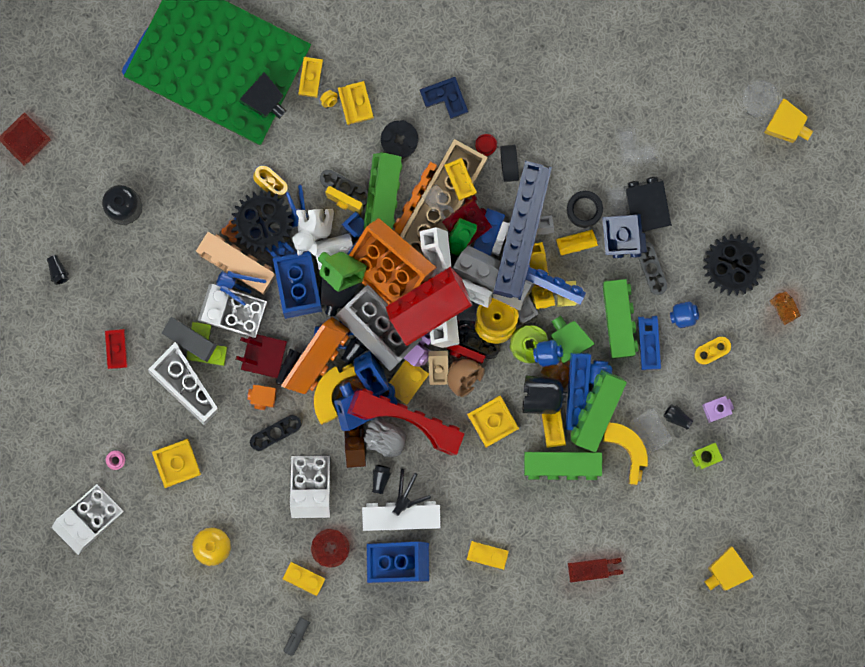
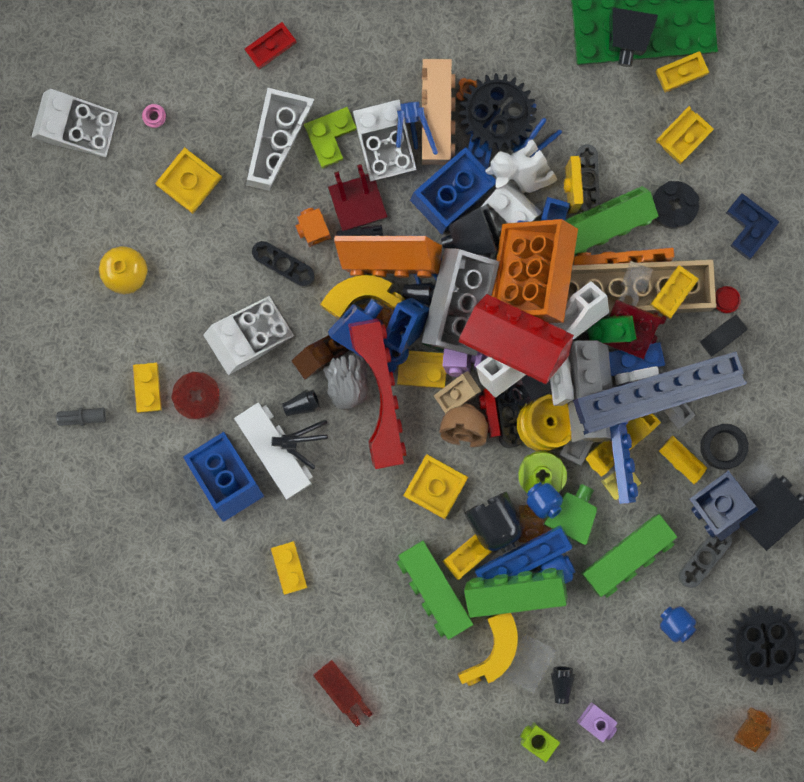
camera: 55 degrees right, 0 degrees up
(189, 339) = (326, 113): dark grey tile -> none
(271, 181) = (546, 97): yellow plate -> none
(329, 99) = (671, 104): yellow plate -> none
(341, 270) = (497, 224): bright green torso -> none
(649, 343) = (622, 604): blue plate -> none
(712, 351) = (657, 677): yellow plate -> none

